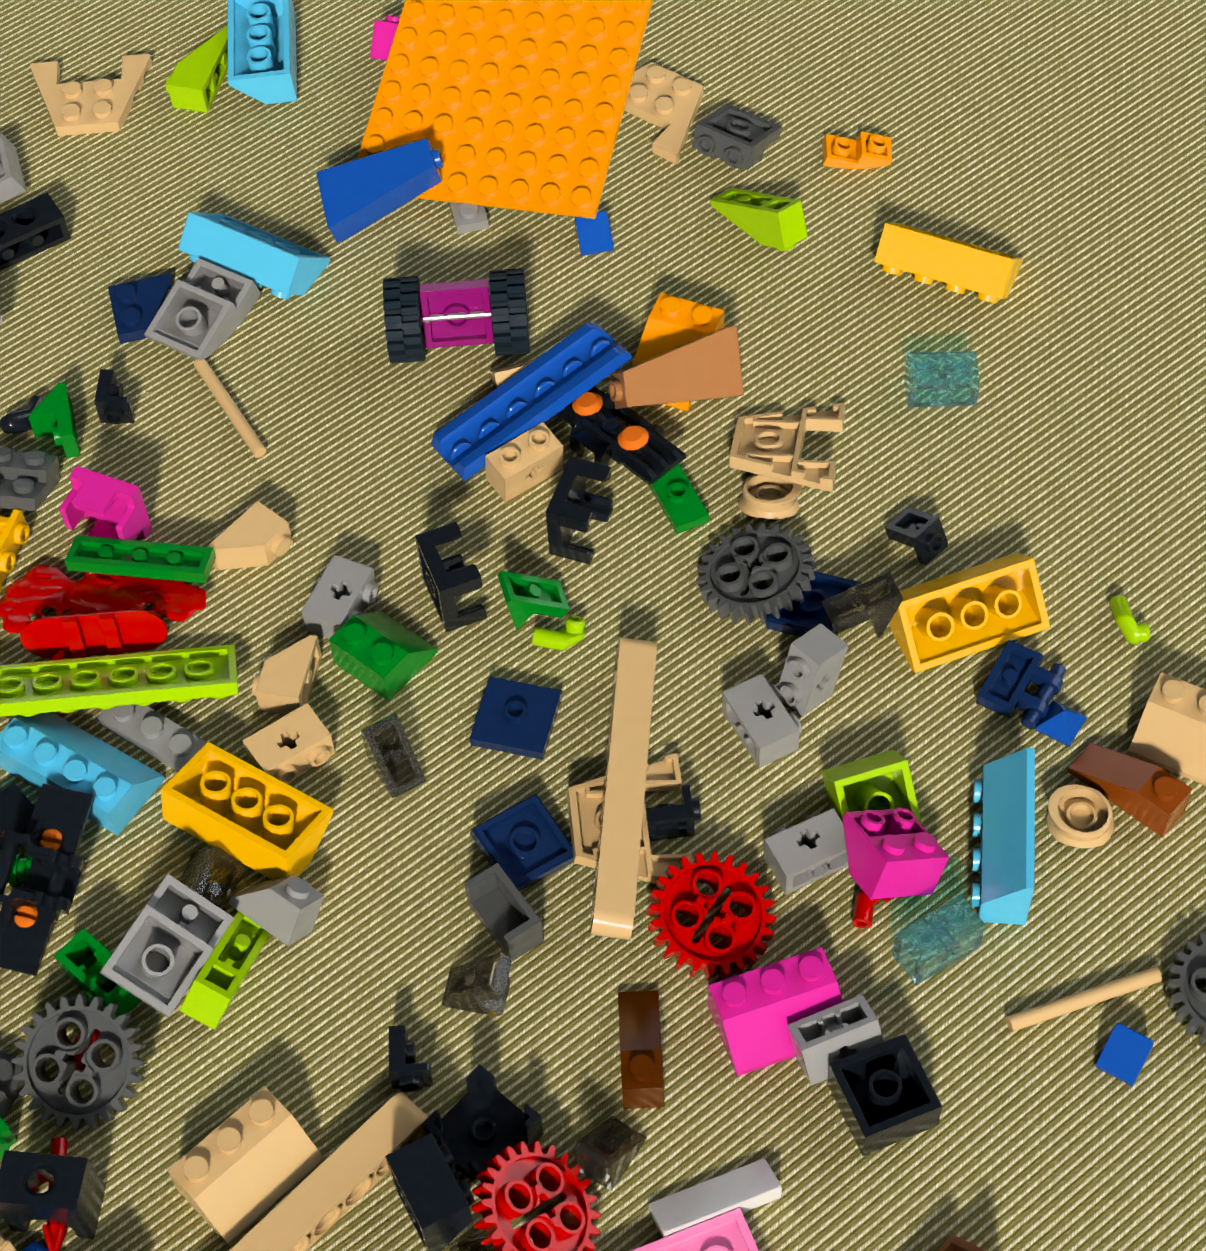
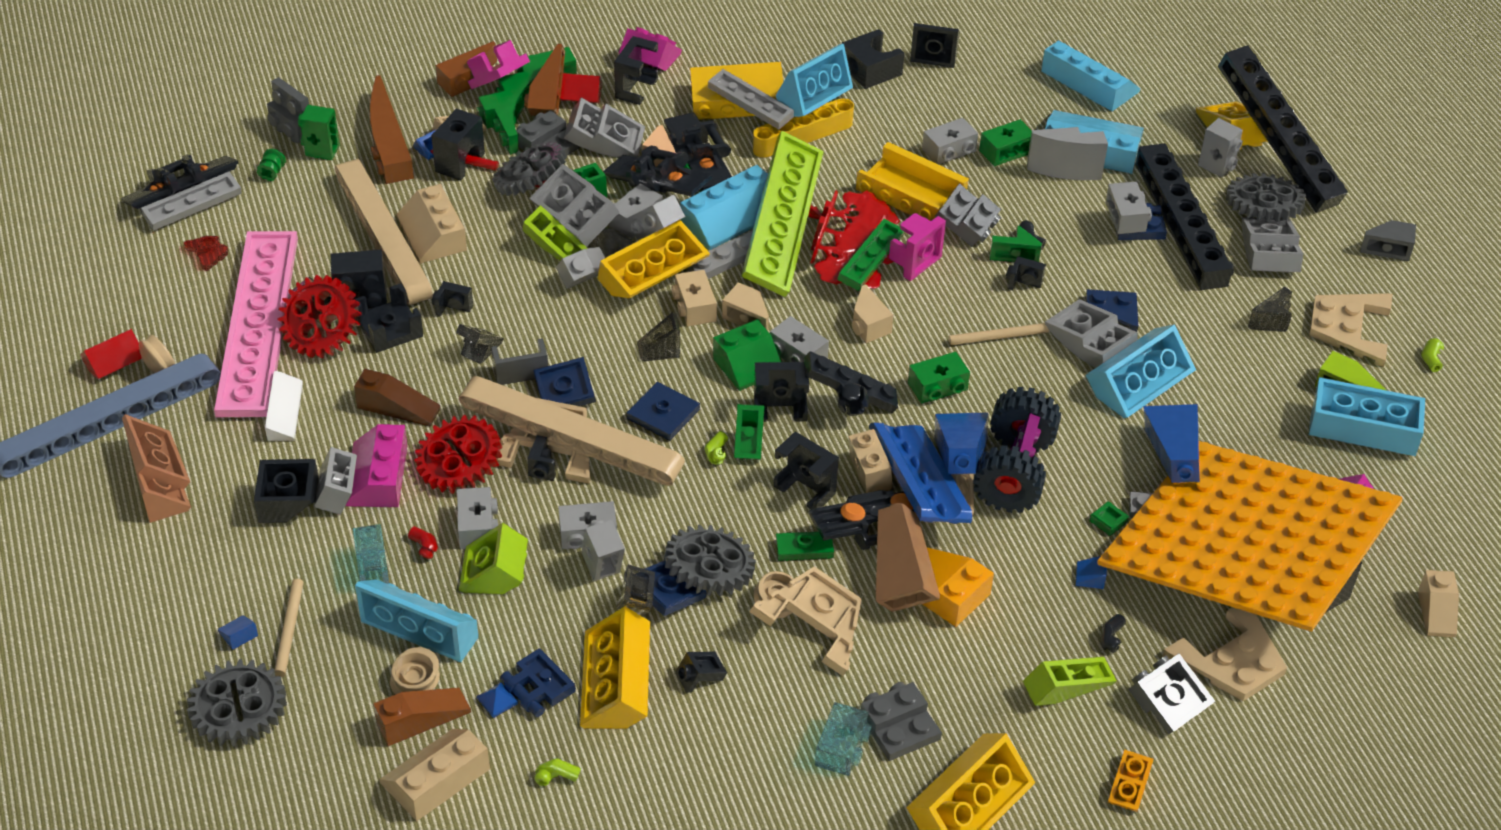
camera: 105 degrees right, 10 degrees down
(99, 158) = (1272, 312): none -> clear smoke slope
(116, 886) = (632, 203): none -> light grey brick
(121, 22) = (1430, 353): none -> lime arm
(163, 824) = (655, 217): none -> light grey brick
(343, 437) = (938, 377): none -> green brick
(418, 504) = (853, 388): none -> black plate
(466, 370) = (961, 440): none -> blue slope
(502, 240) = (1109, 518): none -> green tile
(608, 1151) = (339, 363): clear smoke slope -> none
(676, 201) = (1108, 638): none -> black arm
(883, 342) = (900, 720): none -> dark grey plate
(892, 853) = (441, 545): dark pink slope -> none

